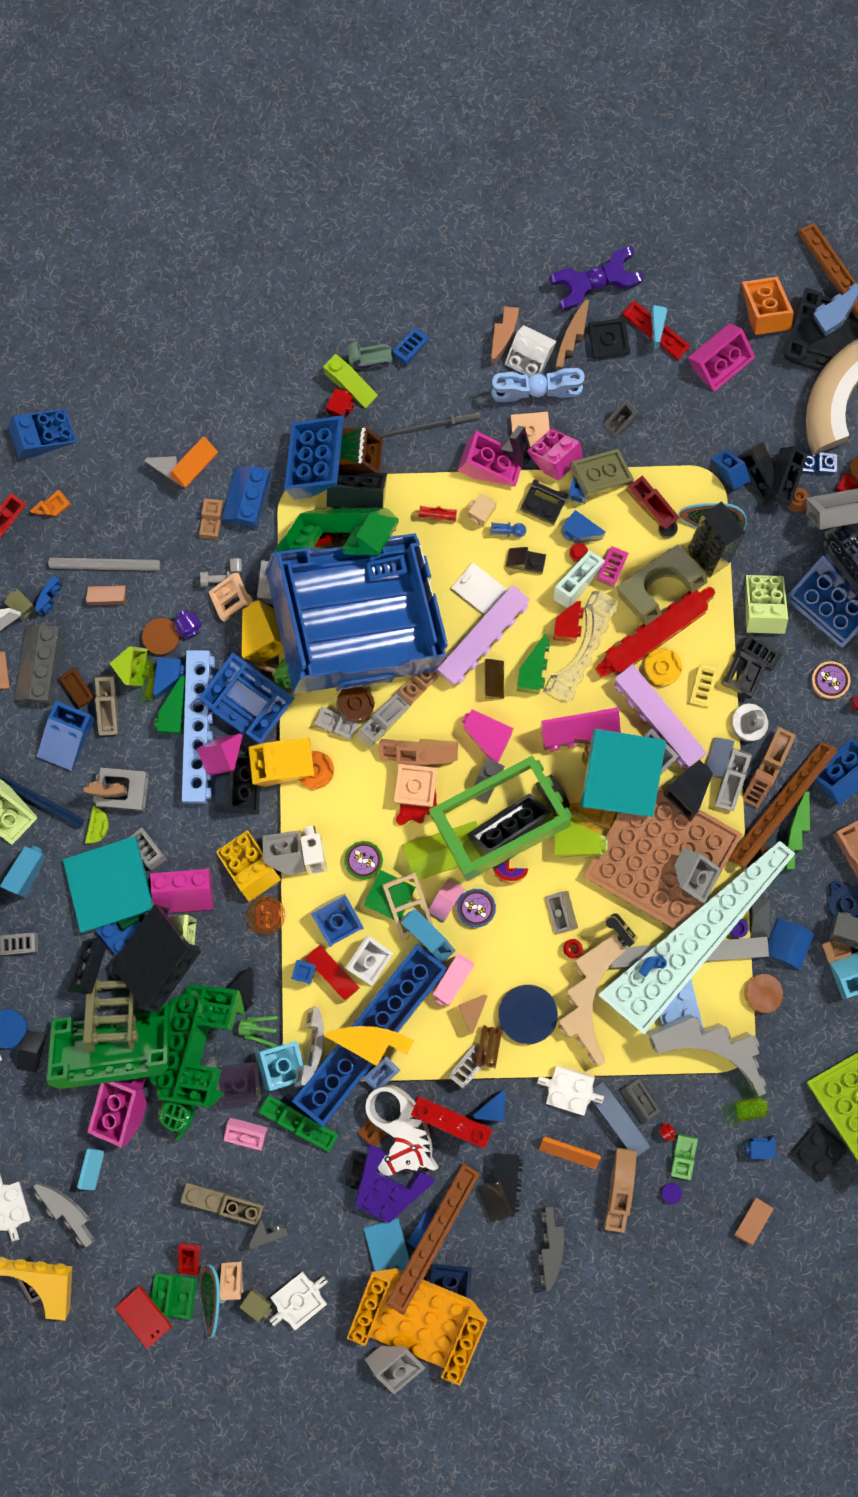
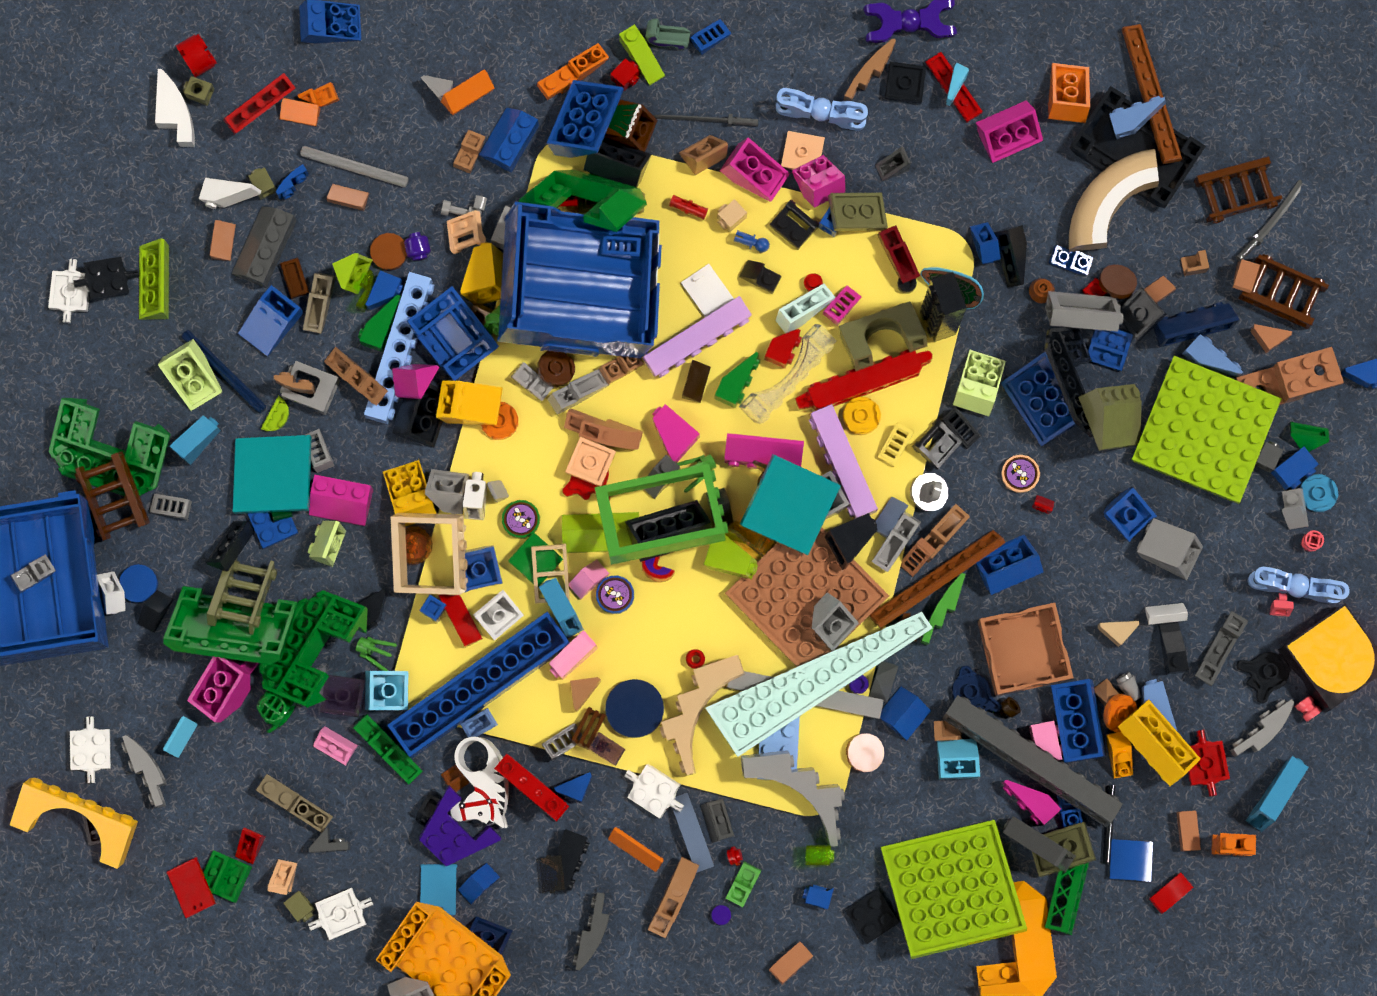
camera: 10 degrees right, 0 degrees up
(36, 526) = (299, 112): none -> orange slope
(155, 959) = (296, 556): black panel -> none
(163, 766) = (356, 376): none -> medium nougat slope
(209, 1298) = (258, 887): shield -> none
(256, 930) = (399, 555): none -> tan window
(292, 411) = (576, 69): none -> orange slope
(315, 1023) = (429, 659): light grey slope -> none
(333, 838) = (497, 490): none -> light grey slope
(370, 1041) = (476, 689): yellow slope -> none
(432, 1239) = (482, 890): dark orange tile -> none
(438, 458) = (704, 153): none -> medium nougat slope
(504, 333) = (804, 49): nougat slope -> none
(513, 1062) = (606, 749): none -> slope
(517, 446) = (784, 163): slope -> none
(522, 754) = (700, 461): none -> bright green plant
(529, 351) = (824, 74): white slope -> none
(561, 912) = (695, 621): slope -> none
(581, 529) = (822, 261): blue slope -> none
(625, 934) = (748, 656): black plate -> none
(652, 962) = (764, 692): blue arm -> none
(788, 473) = (1038, 262): black slope -> none

